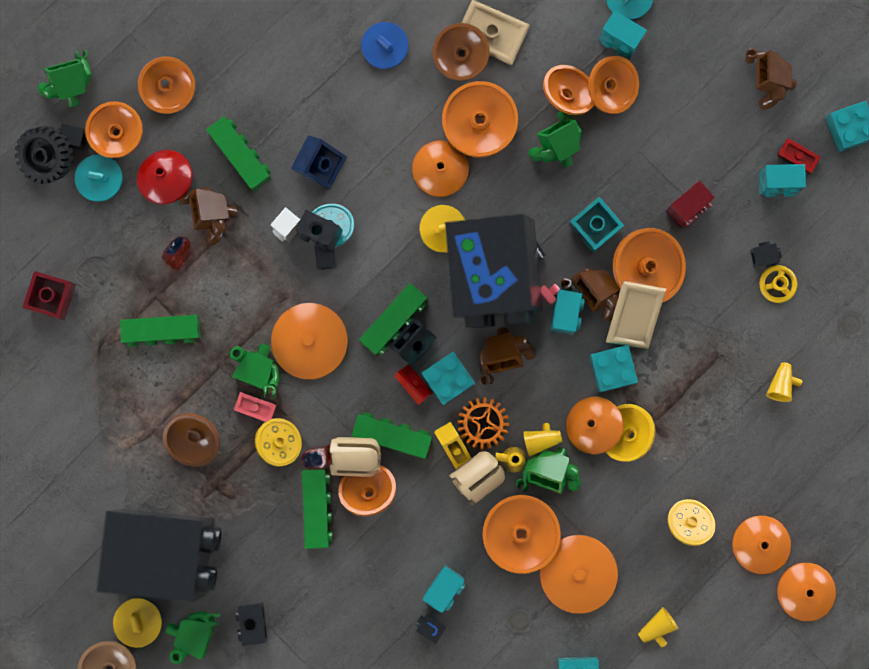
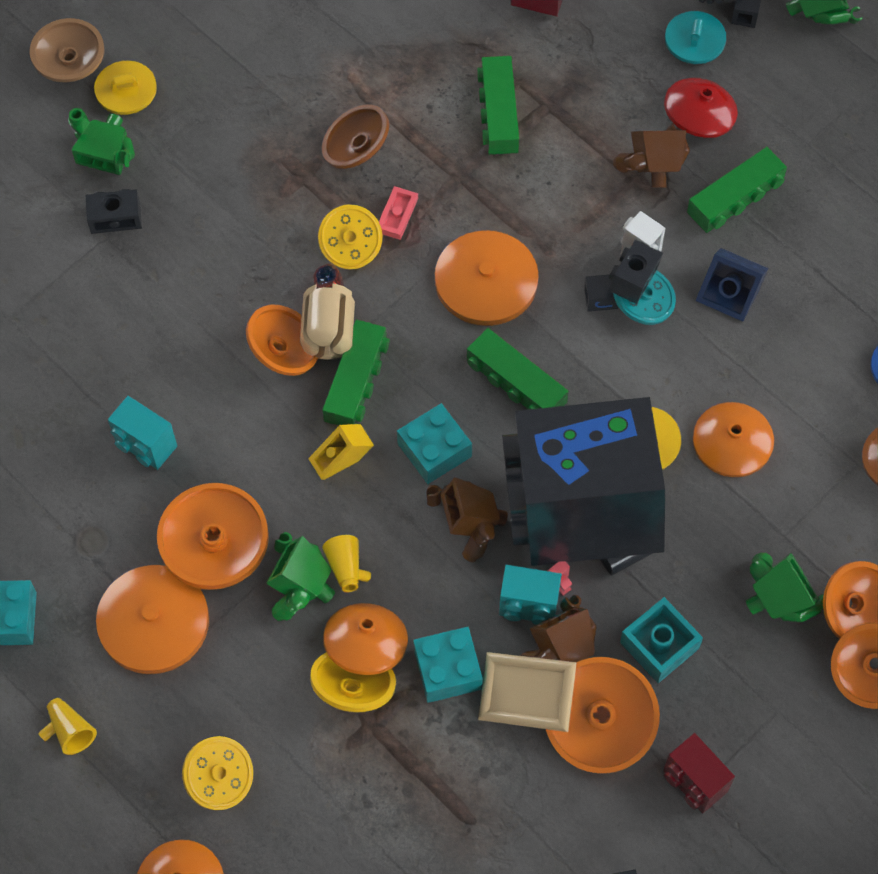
camera: 85 degrees right, 20 degrees down
(107, 119) = (759, 37): orange dish -> none
(158, 555) = (207, 89): black brick -> none
(175, 94) = (815, 89): orange dish -> none
(176, 252) = (601, 122): clear red rock -> none
(256, 368) = (448, 210): green torso -> none
(316, 508) = (258, 283): green brick -> none
(413, 342) = (499, 399): black brick -> none
(413, 384) = (426, 398): red plate -> none
(430, 628) = (90, 422): black brick -> none
(478, 477) = (281, 484): tan cylinder -> none
(480, 119) = (807, 483): orange dish -> none
(498, 429) = (353, 480): orange gear -> none
(506, 459) = (318, 525): yellow piece -> none

